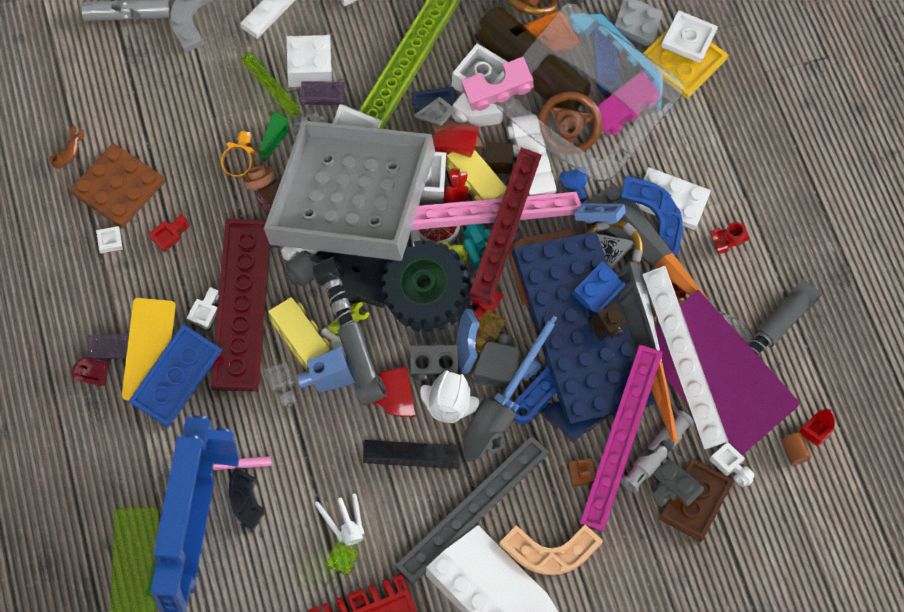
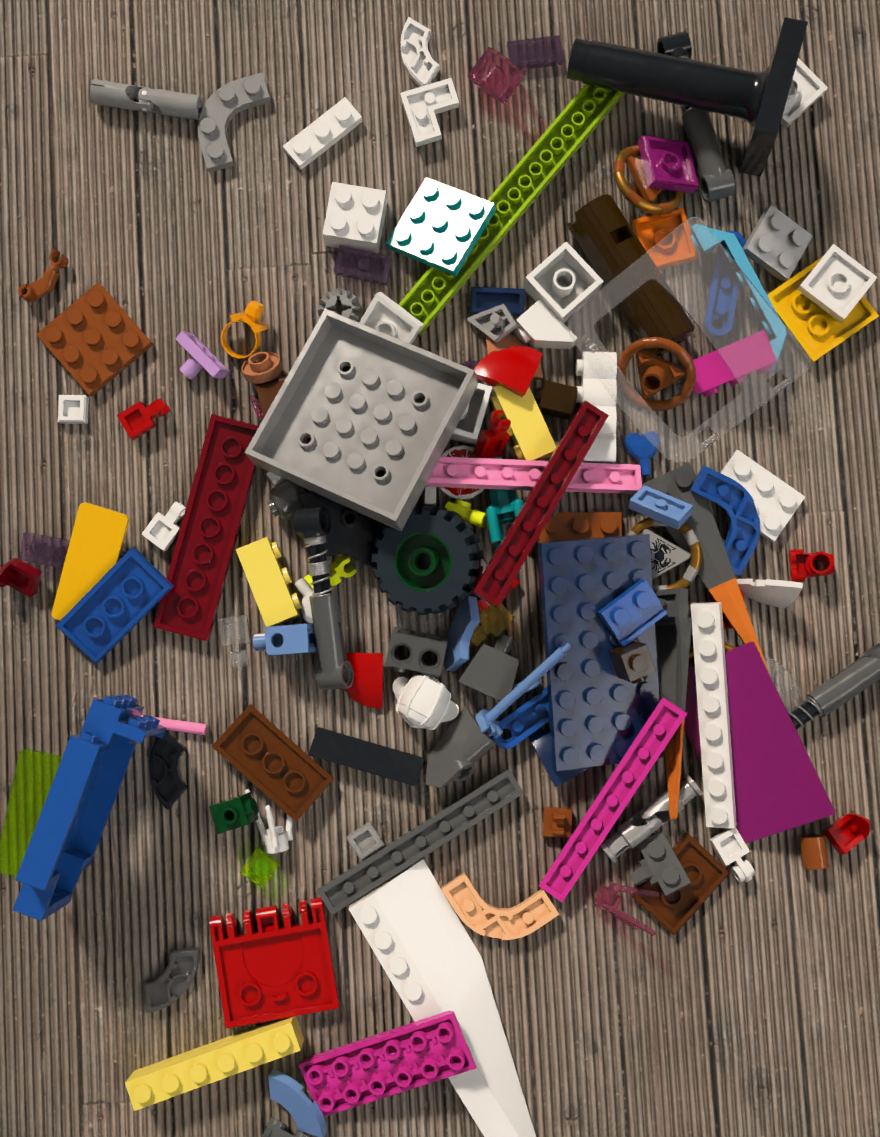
camera: 15 degrees right, 20 degrees up
(206, 181) = (200, 358): none -> lavender tile
(270, 84) = (303, 239): clear neon green axle -> none
(275, 132) = (293, 309): green slope -> none
(311, 516) = (234, 812): none -> dark green brick
(334, 472) = (273, 762): none -> reddish brown plate
(377, 54) = (441, 226): none -> plate
(425, 520) = (365, 840): none -> light grey tile
(482, 94) = (601, 310): bright pink arch -> none
(641, 521) = (609, 900): none -> clear pink plant
(704, 259) = (771, 592): none -> white brick

